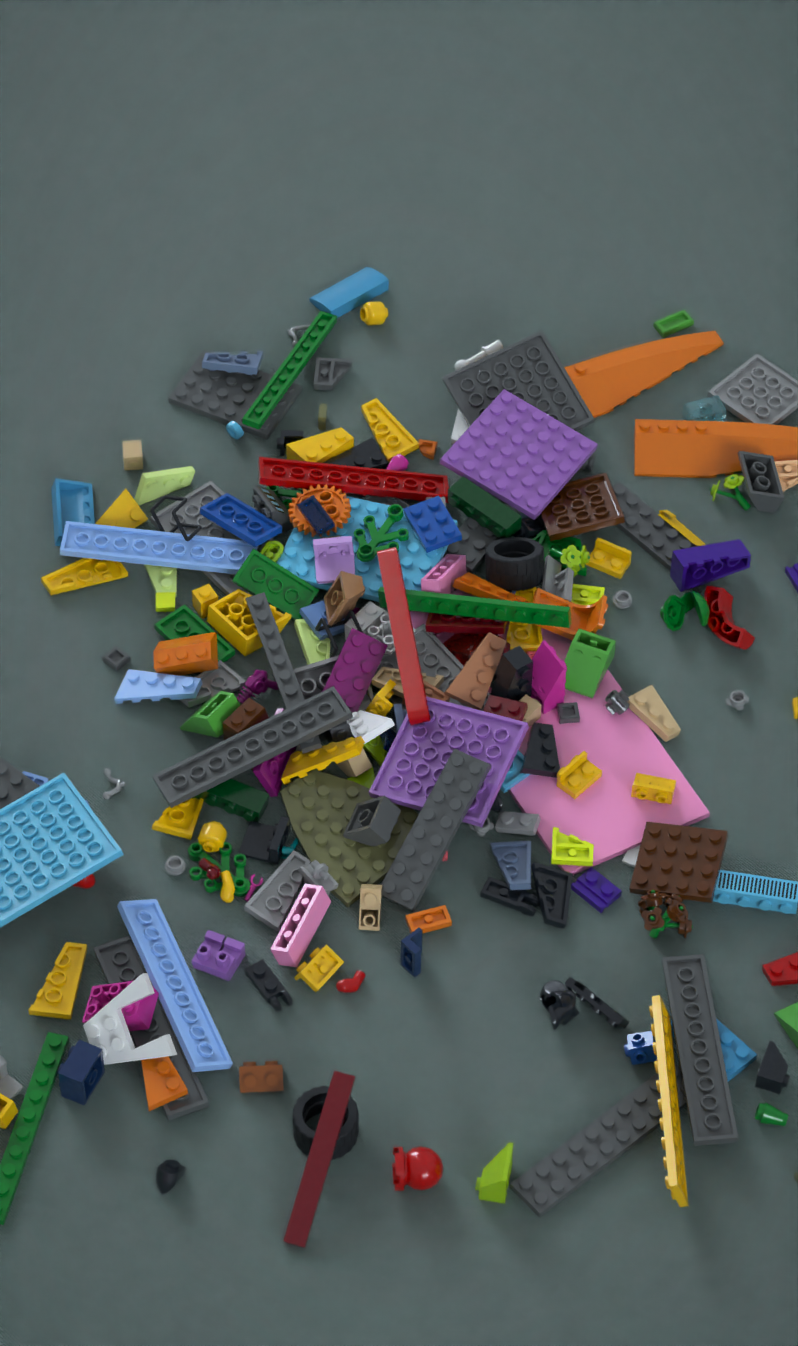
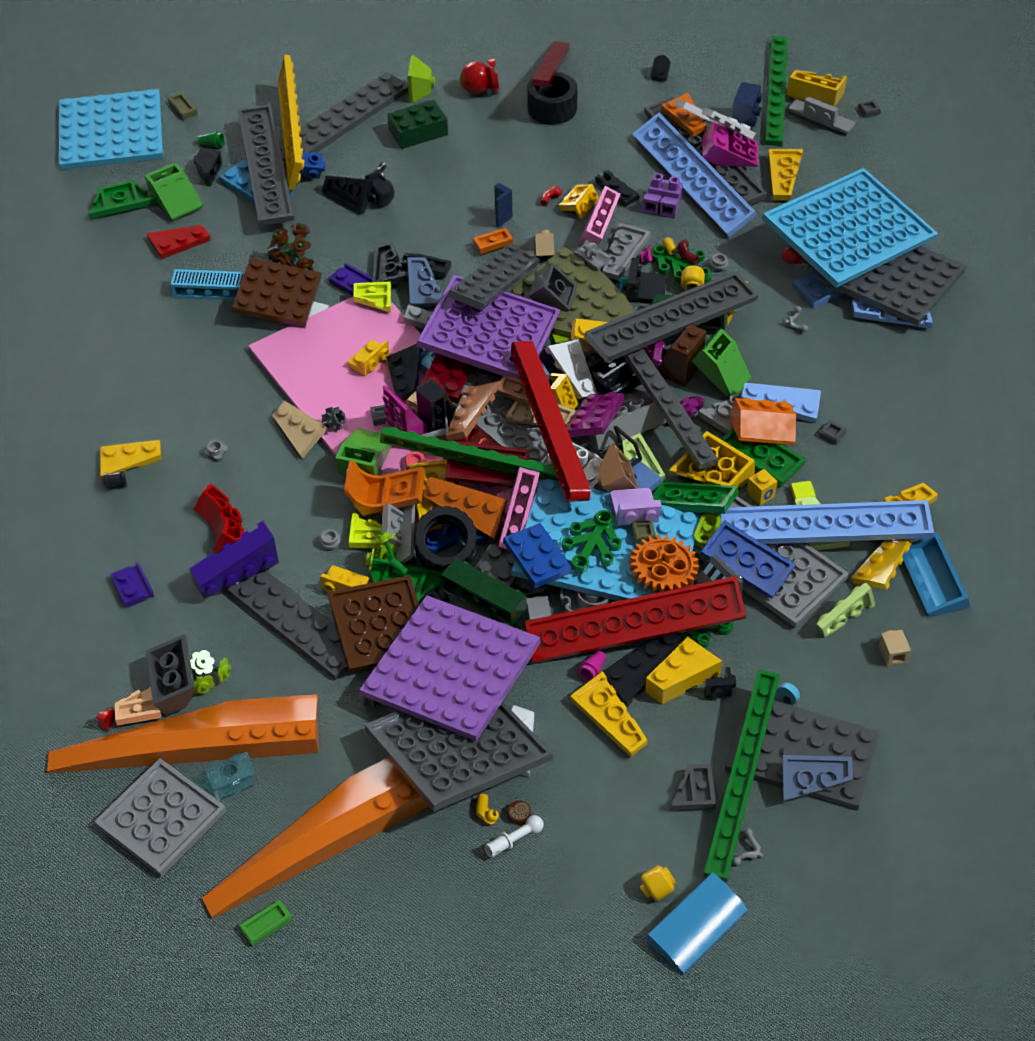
camera: 175 degrees right, 0 degrees up
(179, 525) = (813, 518): black piece -> none
(261, 1078) = (608, 131): dark orange bracket -> none
(315, 515) = (665, 542): clear blue tile -> none
(322, 417) = (690, 721): olive tile -> none
(427, 448) = (559, 702): orange tile -> none
(504, 1105) = (417, 124): none -> dark green brick
(653, 788) = (299, 351): yellow bracket -> none
(670, 519) = (267, 628): yellow piece -> none
(675, 609) = (247, 516): green animal -> none

